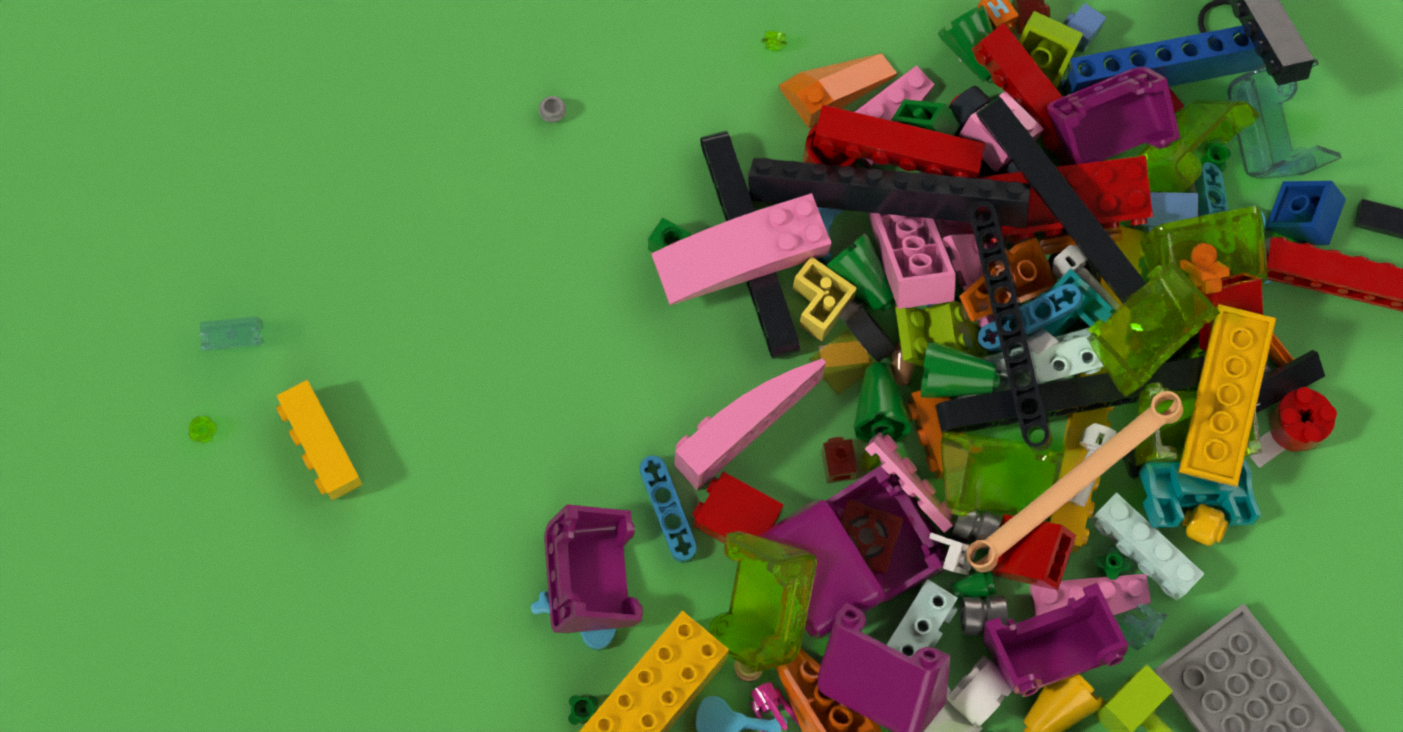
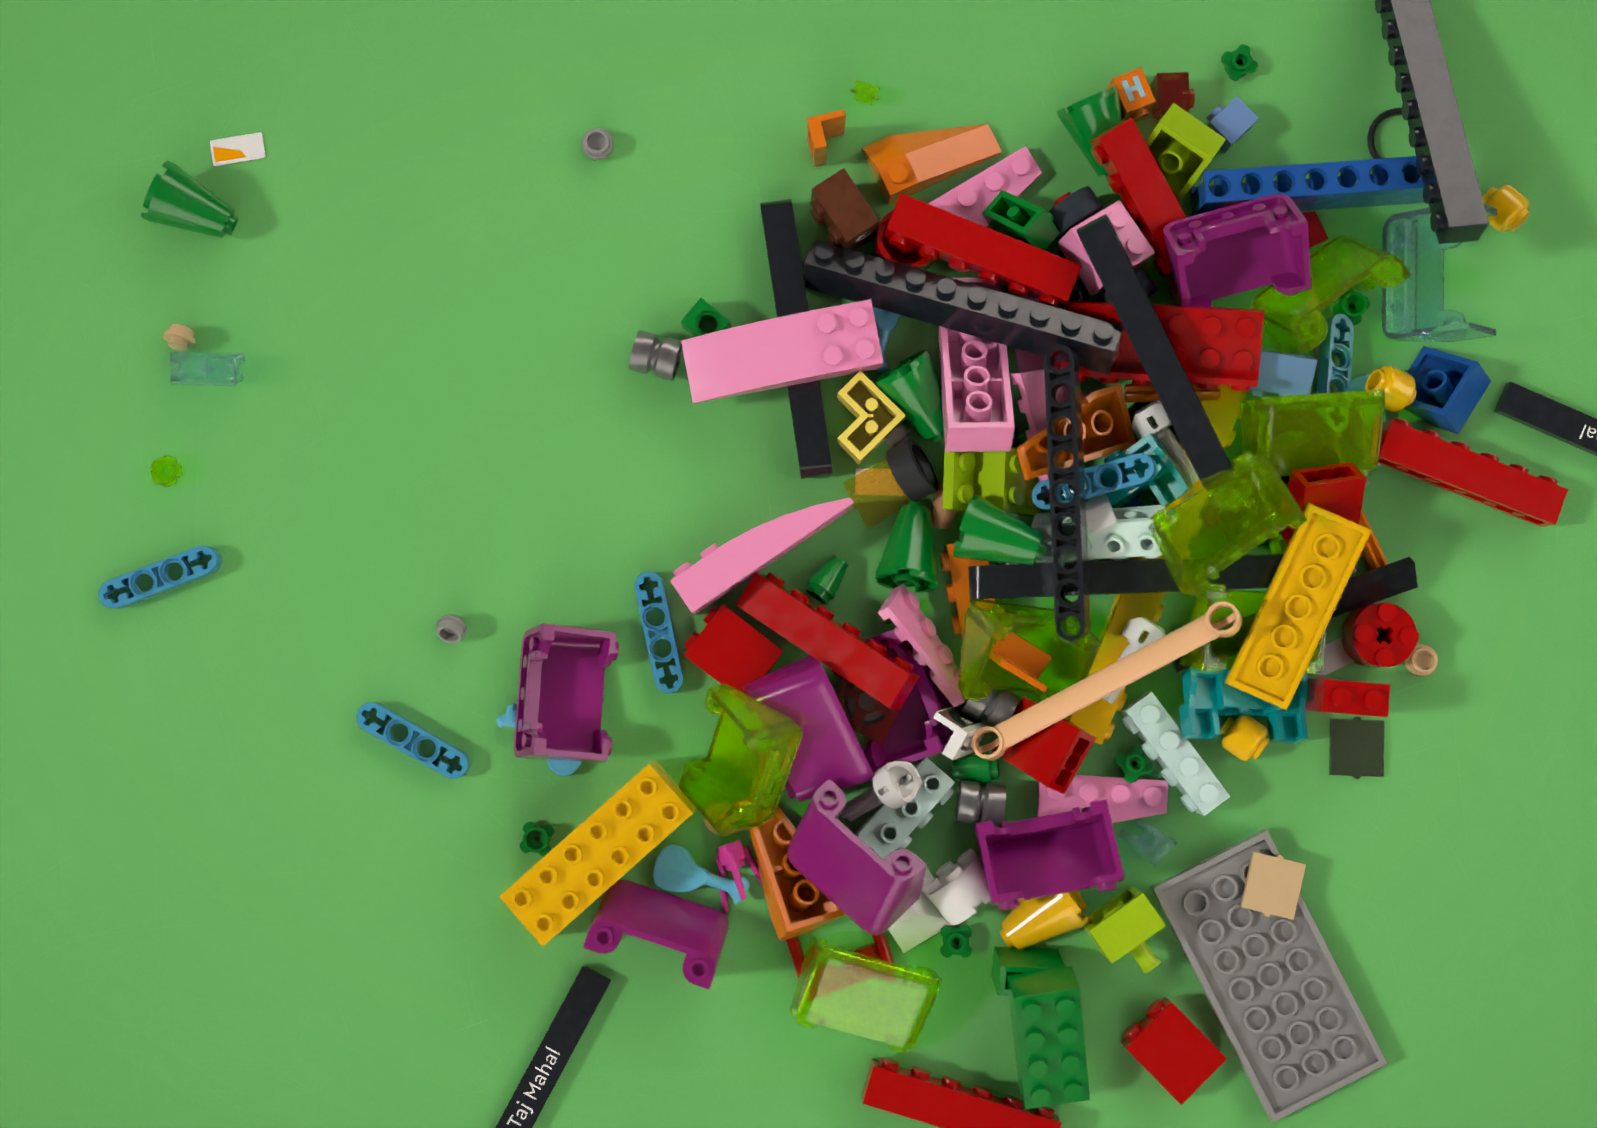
camera: 15 degrees right, 15 degrees up
(202, 200) = (186, 204): none -> green cone
(204, 311) = (179, 337): none -> tan plate
(207, 527) = (160, 577): none -> dark azure beam
(238, 153) = (237, 149): none -> white sticker
(319, 441) = (288, 504): yellow brick -> none
(458, 632) = (415, 736): none -> dark azure beam
(479, 536) = (451, 628): none -> light grey plate
(629, 271) = (654, 355): none -> flat silver wheel
(743, 72) = (821, 128): none -> orange panel
(774, 131) = (843, 212): none -> copper brick
(810, 443) = (827, 579): none -> green cone
(814, 481) = (829, 641): none -> red brick
(839, 460) = (854, 604): clear red brick -> none
(899, 608) = (886, 789): none -> white piece
(995, 478) = (1021, 659): none -> orange panel
(1204, 268) = (1303, 460): orange hips -> none
(1259, 650) = (1273, 885): none -> tan piece
(1272, 212) = (1398, 387): none -> yellow head
(1287, 472) = (1348, 697): none -> red brick
(1305, 523) = (1356, 747): none -> clear smoke piece
(1330, 63) = (1510, 206): none -> yellow head
(1343, 438) = (1422, 660): none -> tan plate

